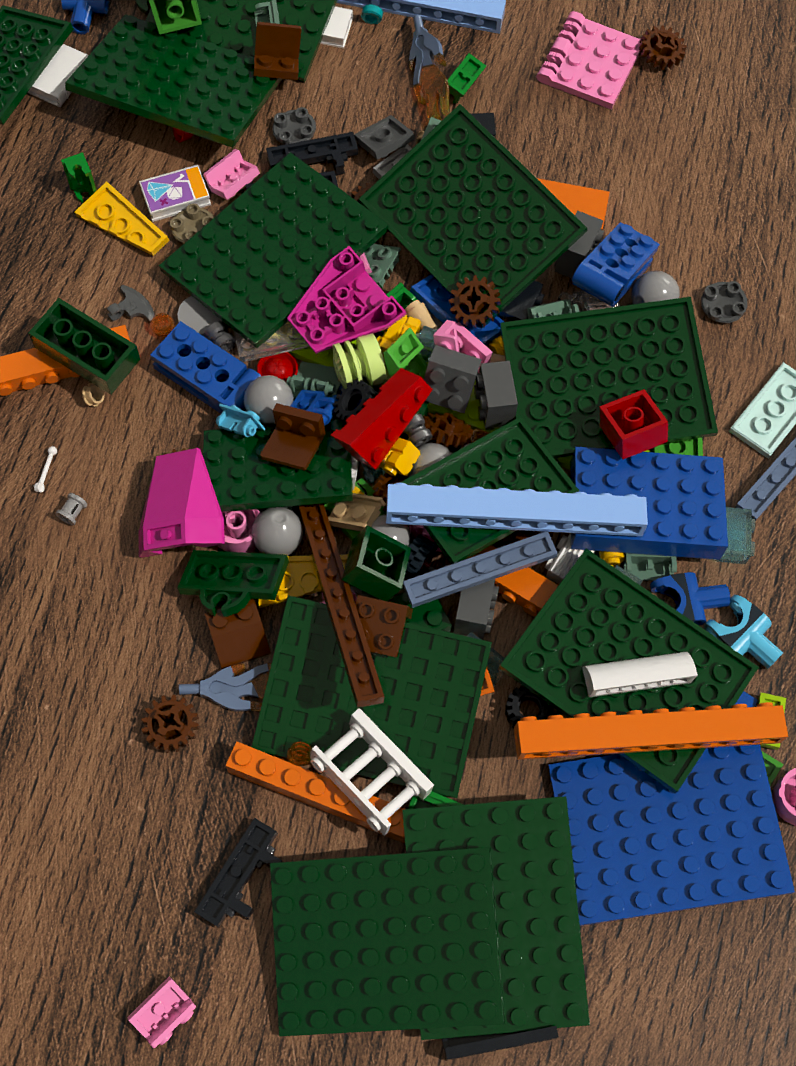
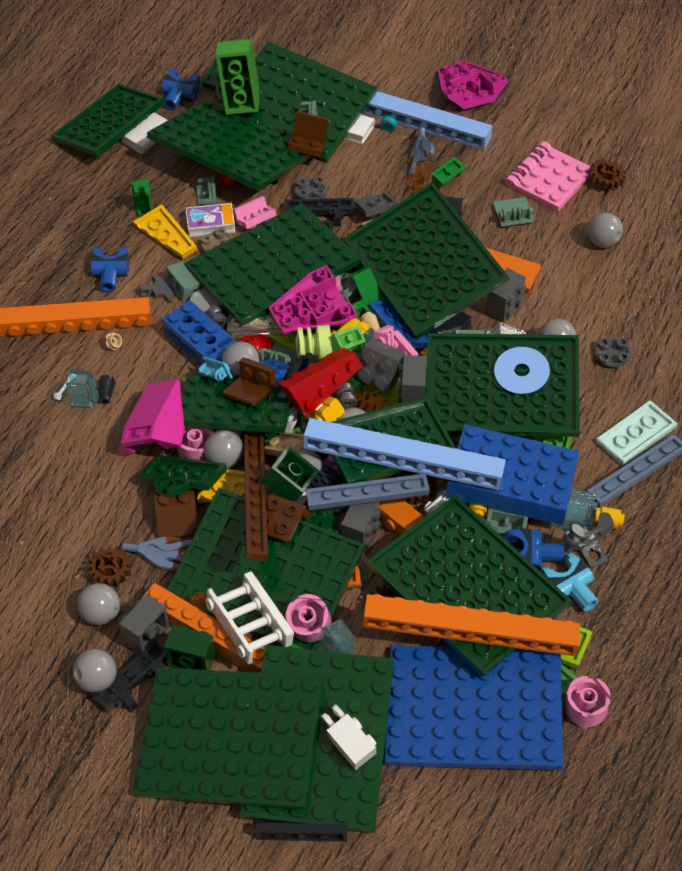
camera: 15 degrees right, 15 degrees down
(61, 283) = (109, 267): none -> blue connector
(71, 475) = (82, 389): none -> clear light blue brick
(71, 509) = (82, 410): light grey bush -> none
(84, 346) = (114, 303): dark green brick -> none
(100, 466) = (106, 387): none -> black cone
(160, 153) = (206, 193): none -> sand green hinge
(160, 289) = (181, 280): none -> sand green hinge
(162, 324) = (175, 302): clear orange plate -> none
(162, 1012) = (48, 758): bright pink bracket -> none
(170, 782) = (98, 604): none -> light grey piece
(190, 879) = (94, 670): none -> light grey piece
(237, 801) = (144, 624): none -> dark grey brick
(304, 826) = (189, 649): none -> dark green brick
(403, 262) = (367, 285): none -> green hinge
(434, 768) = (301, 609): none -> bright pink brick
(484, 301) = (412, 317): reddish brown gear -> none
(488, 779) = (338, 638): none -> clear light blue brick
(538, 919) = (349, 738): none -> white hinge
(558, 119) = (514, 211): none -> sand green hinge
(615, 264) = (528, 309): blue hinge -> none
(629, 377) = (511, 381): none -> light blue sticker
(633, 424) = (511, 412): red brick -> none
(639, 674) = (473, 586): white brick -> none
(679, 130) = (604, 230): none -> light grey piece
(746, 575) = (585, 540): none -> dark grey piece
(771, 536) = (616, 515): none -> yellow brick

